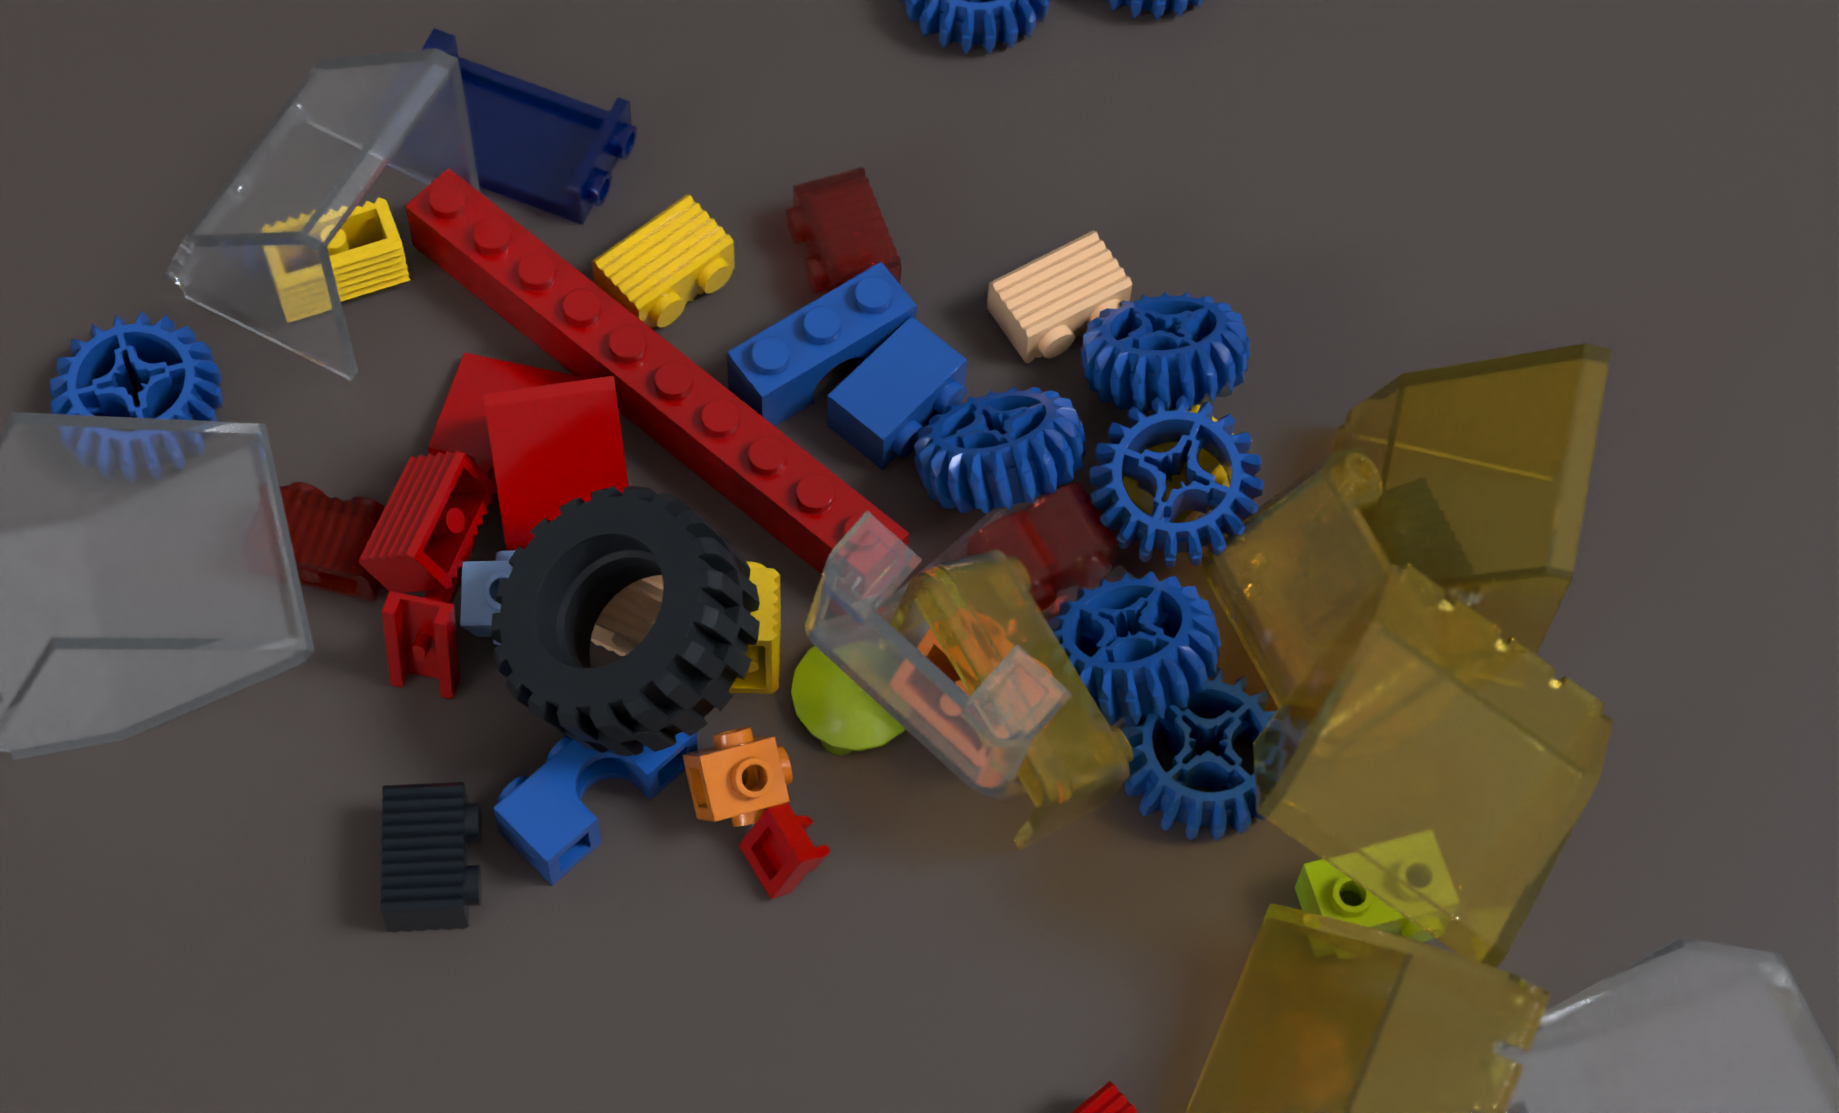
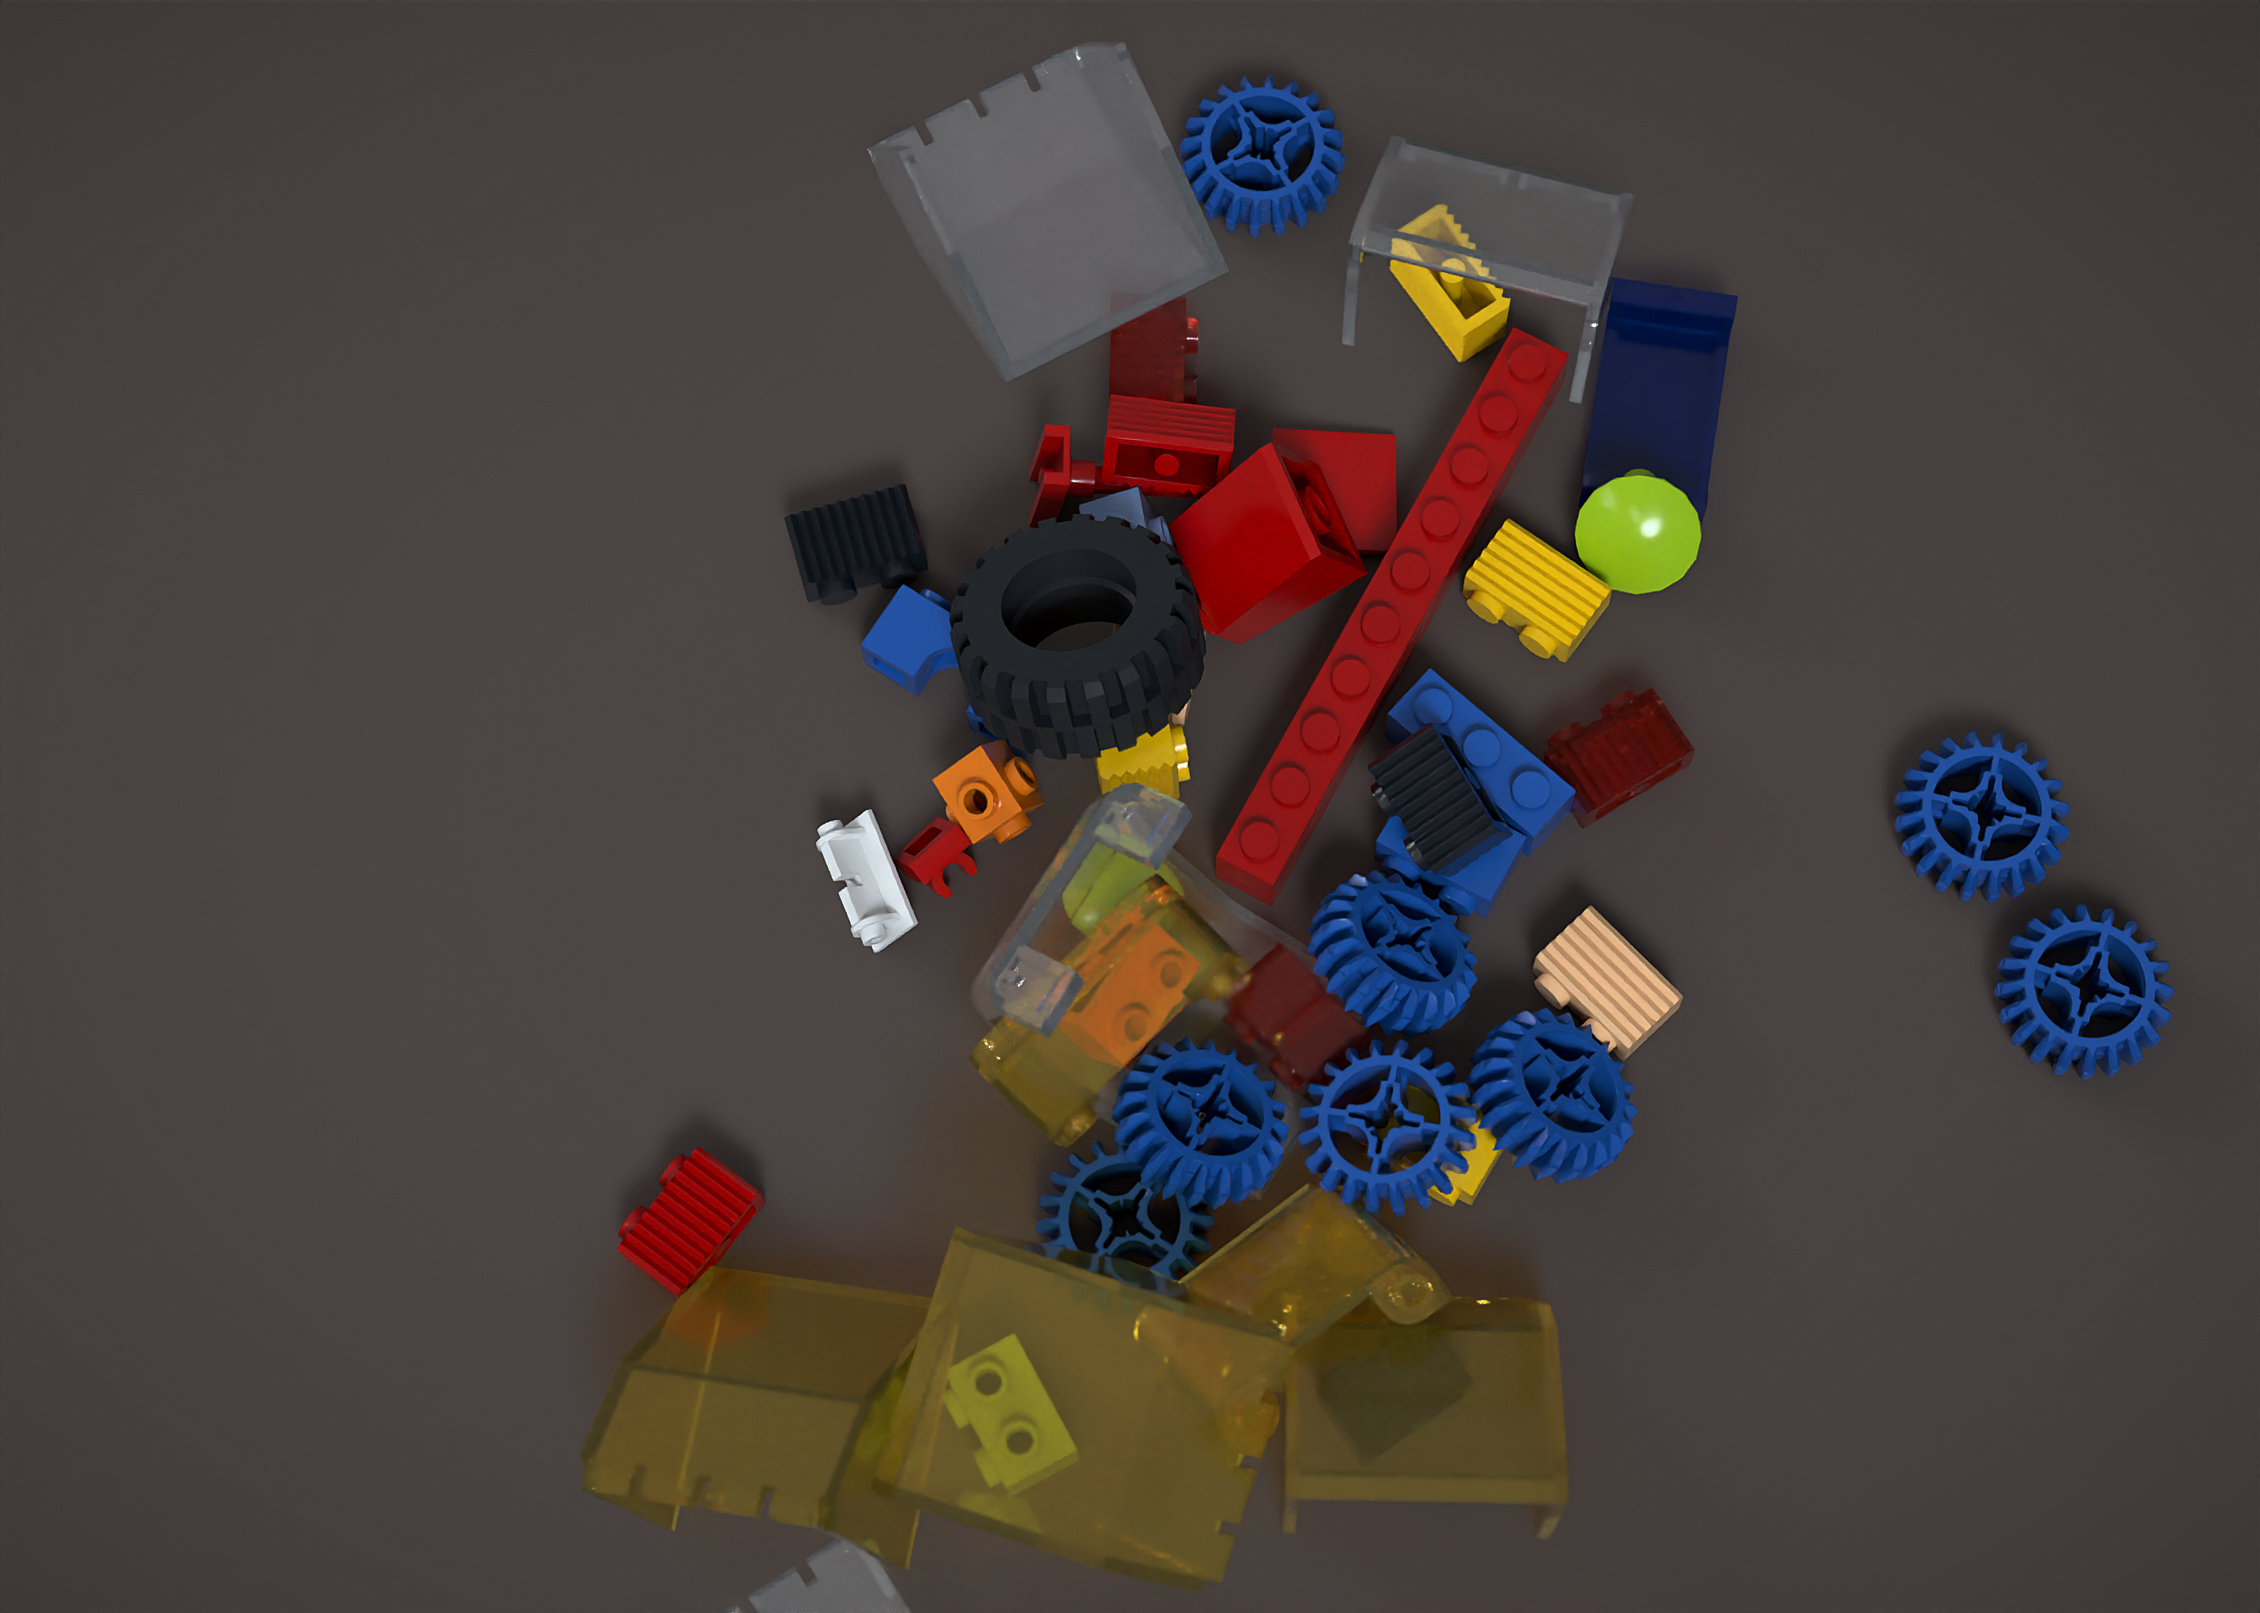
camera: 85 degrees right, 10 degrees up
(636, 162) = (1638, 533): none -> lime dish
(794, 916) = (874, 890): none -> white hinge
(869, 364) = (1438, 801): none -> black brick

